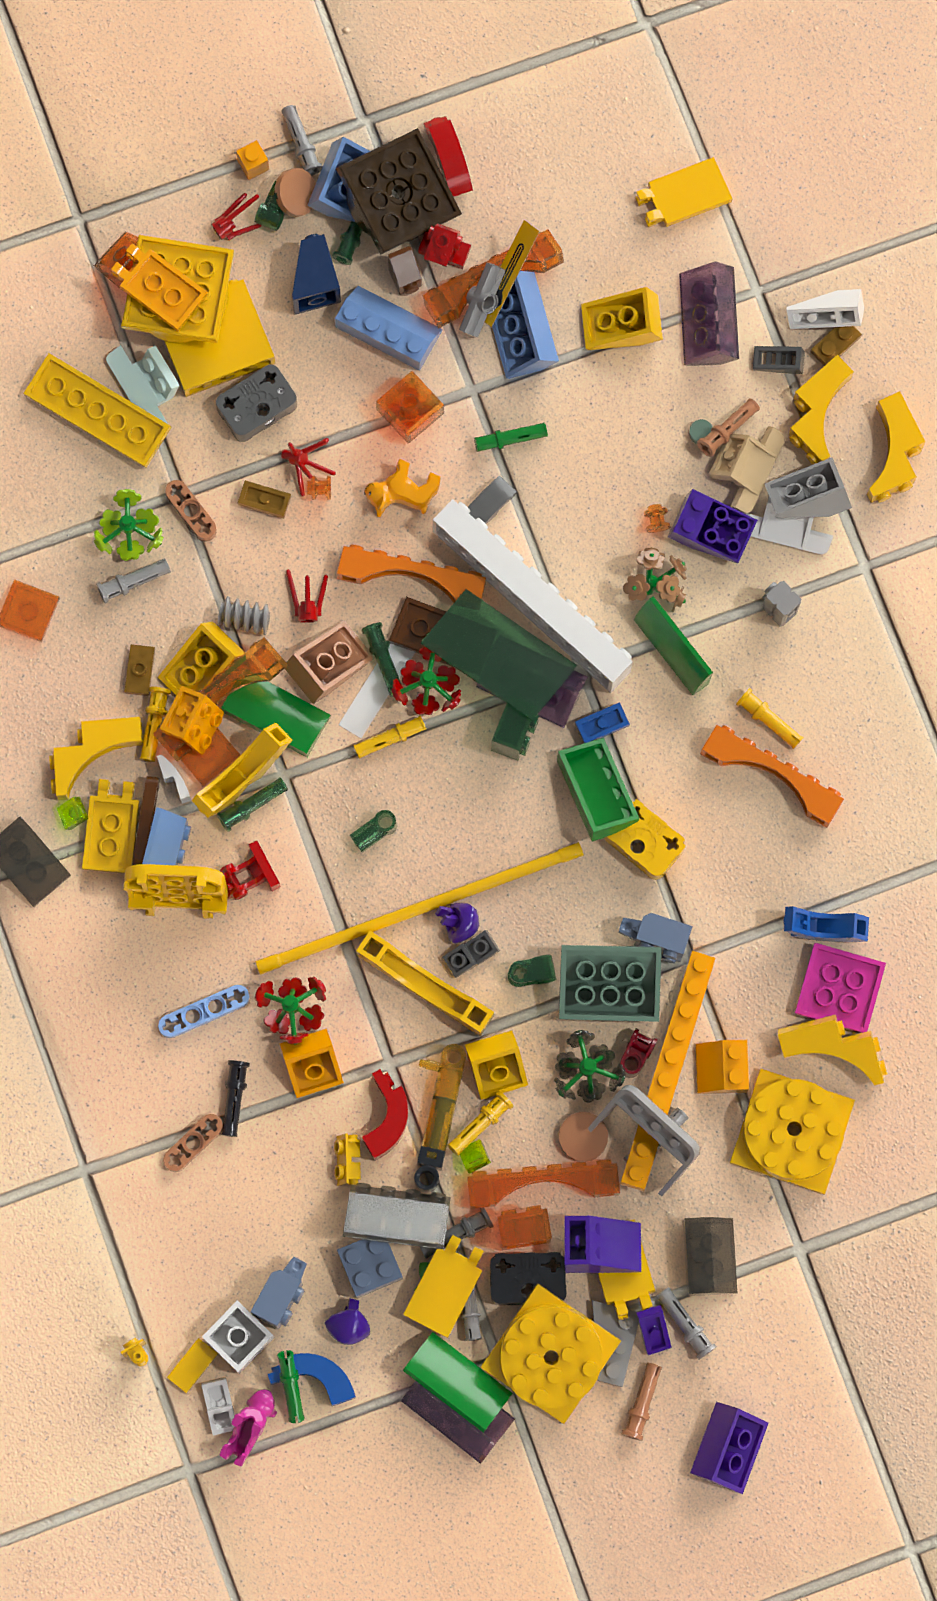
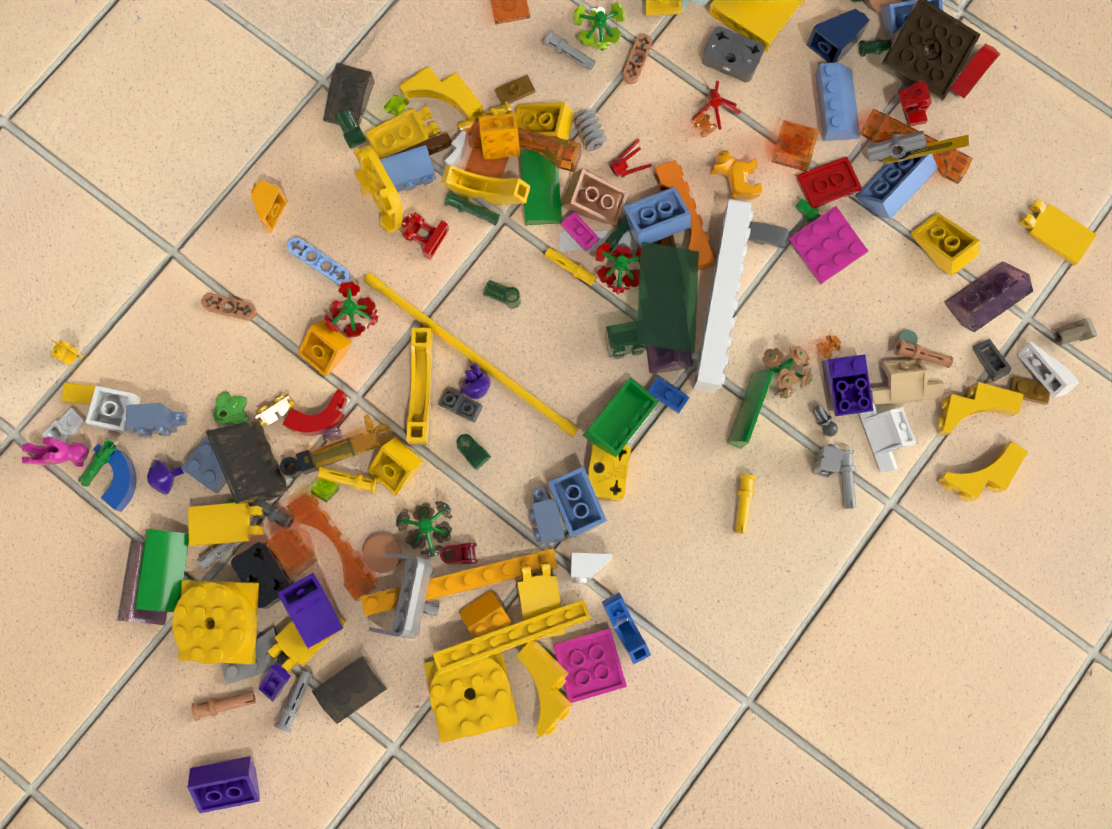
camera: 60 degrees right, 0 degrees up
(76, 882) = (352, 133): none -> clear green piece
(102, 1026) = (268, 202): none -> light orange slope
(237, 1083) = (281, 310): black pin -> none
(264, 499) = (674, 96): pearl gold plate -> none
(316, 1205) = (232, 407): none -> bright green plate
(356, 702) = (580, 231): none -> dark pink plate
(398, 607) = (657, 216): none -> medium blue slope
(404, 271) = (881, 87): slope -> none
(416, 1112) = (331, 434): none -> tile
(472, 397) = (828, 182): none -> red tile
(545, 446) = (828, 245): none -> dark pink plate
(610, 983) = (492, 506): sand green slope -> none
(661, 891) = (577, 502): none -> medium blue slope
(728, 749) = (704, 487): orange arch -> none
(735, 925) = (587, 565): none -> white slope
(743, 999) = (538, 594): none -> yellow tile
(744, 577) = (829, 428): none -> dark grey axle
(762, 1047) = (511, 636): none -> yellow plate
(805, 250) = (1079, 330): none -> dark tan piece
(809, 492) = (916, 433): light grey slope -> none
(812, 594) = (847, 469): none -> light grey pin

